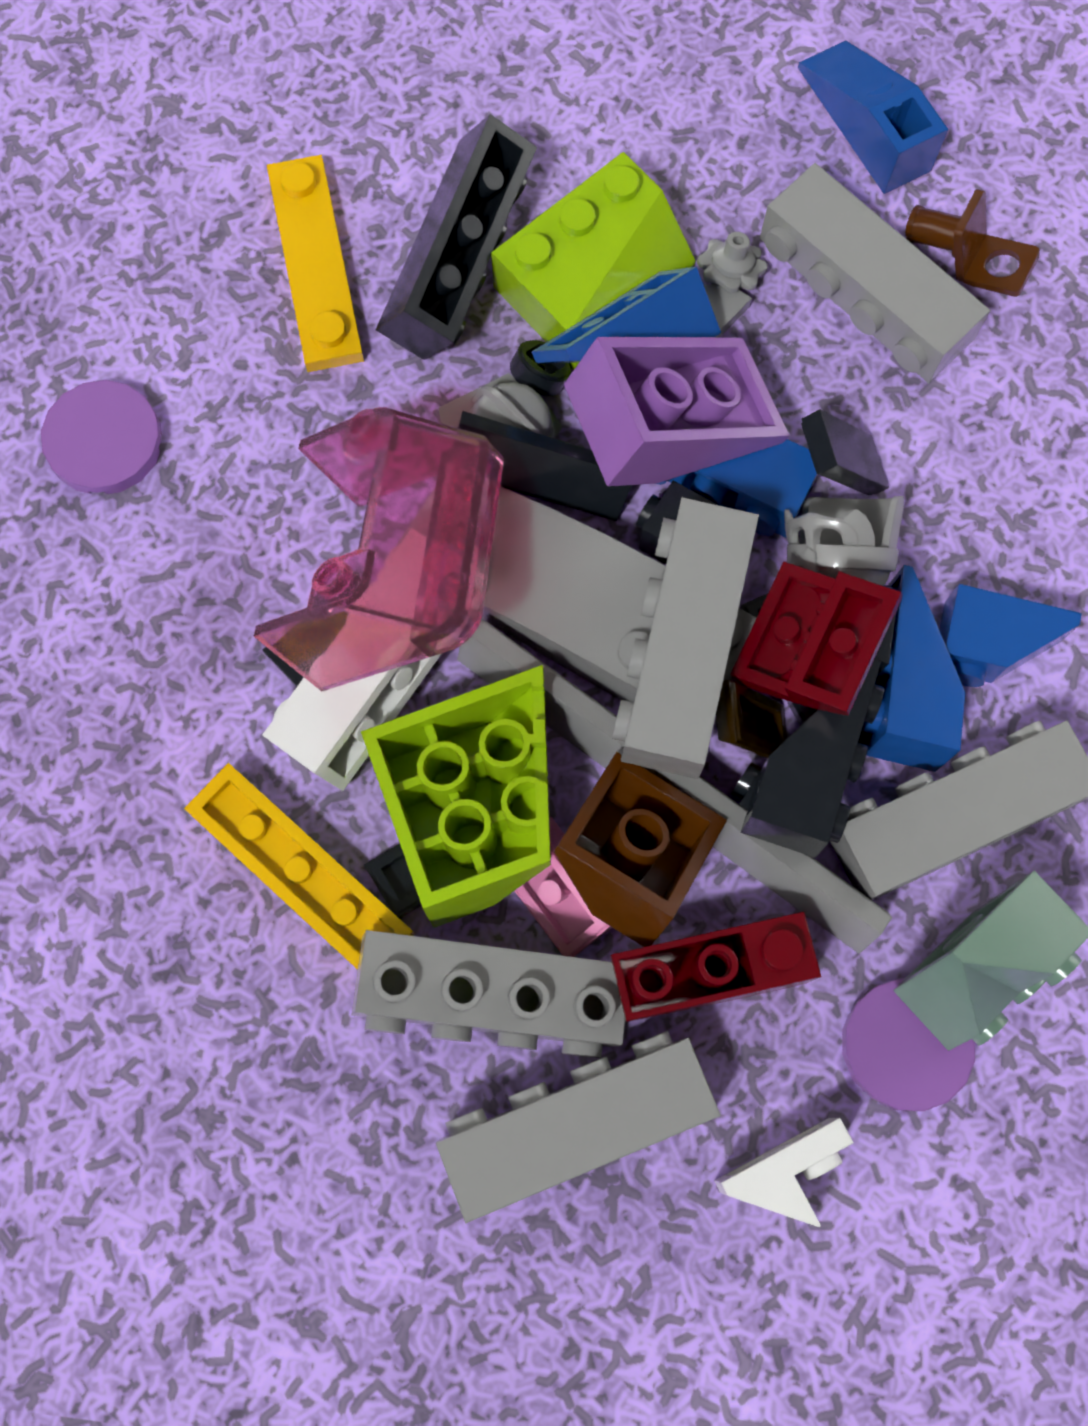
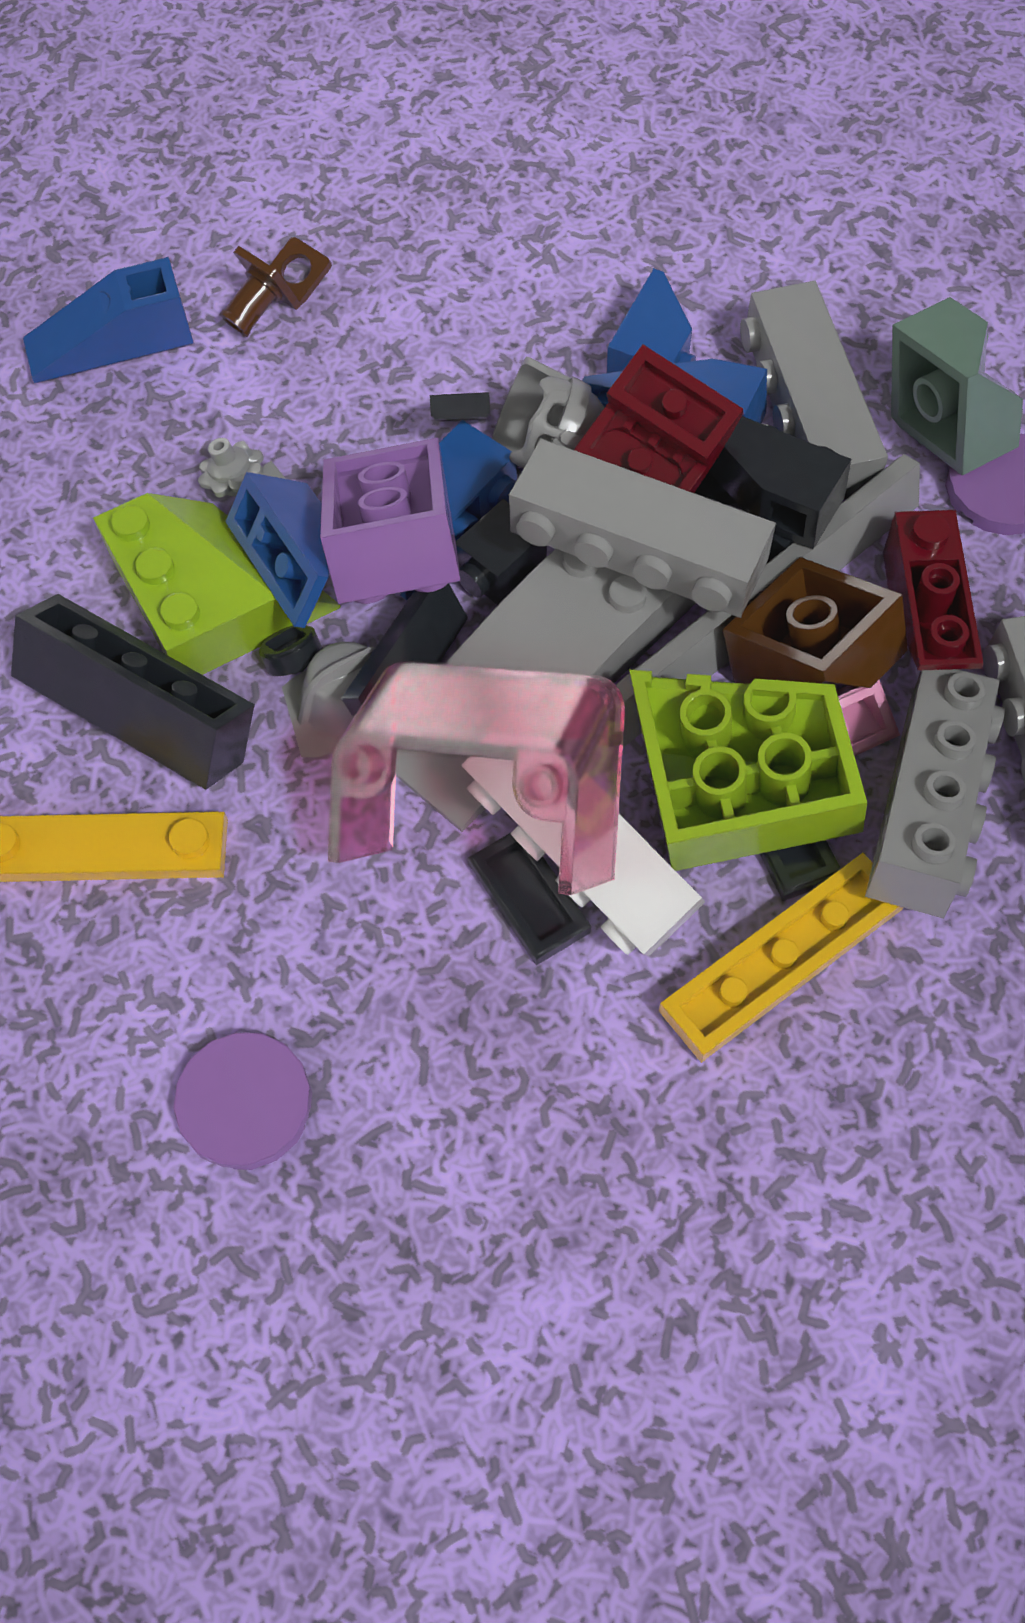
camera: 75 degrees left, 10 degrees down
(872, 273) = (280, 356): light grey brick -> none

